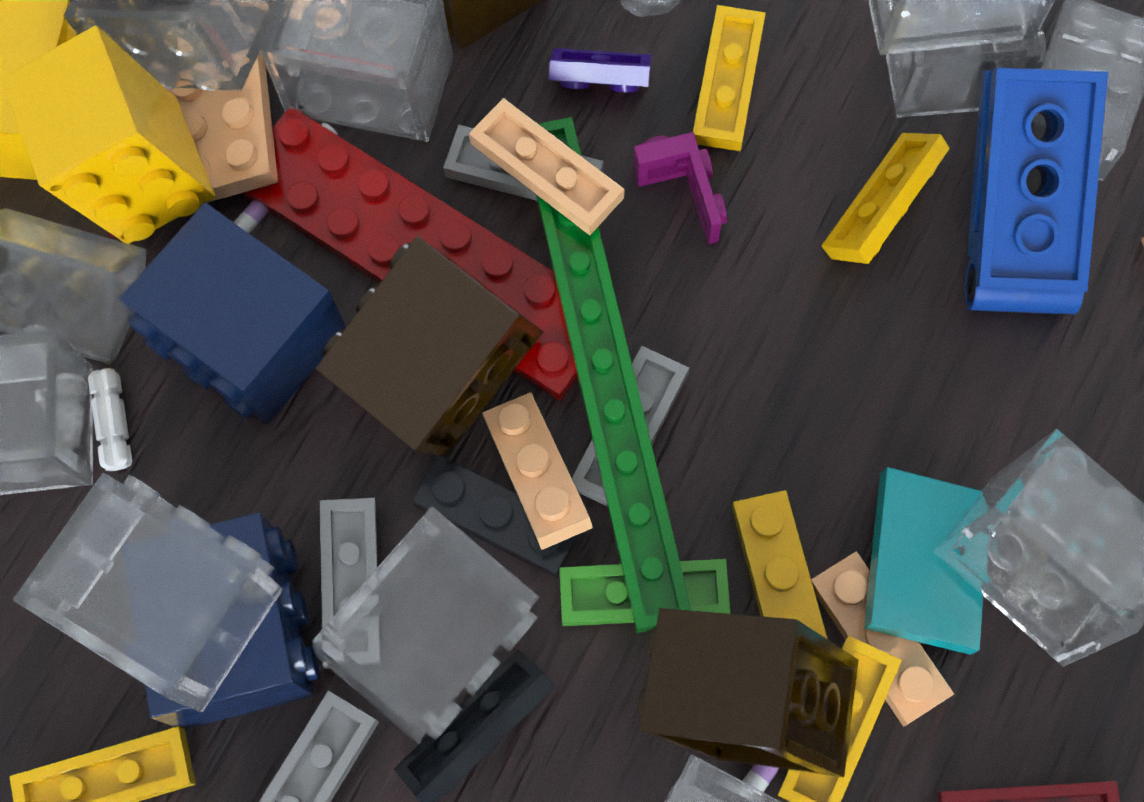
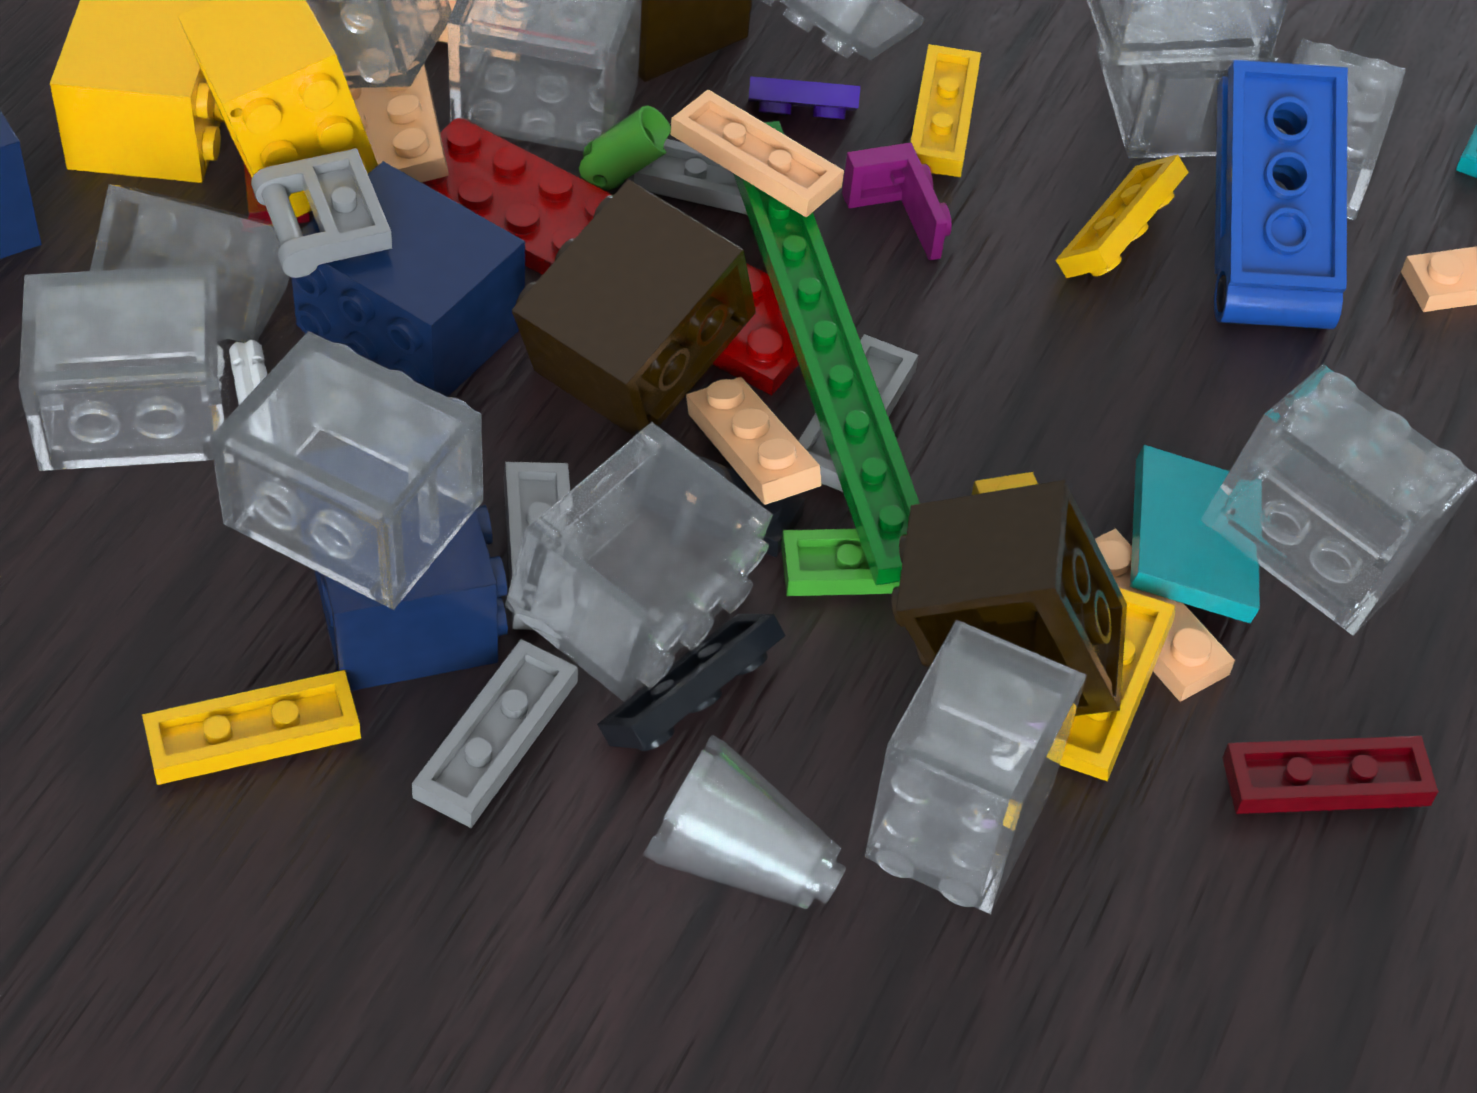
camera: 10 degrees left, 20 degrees down
(161, 269) = (341, 203): none -> light grey plate
(434, 148) = (625, 148): none -> bright green piece

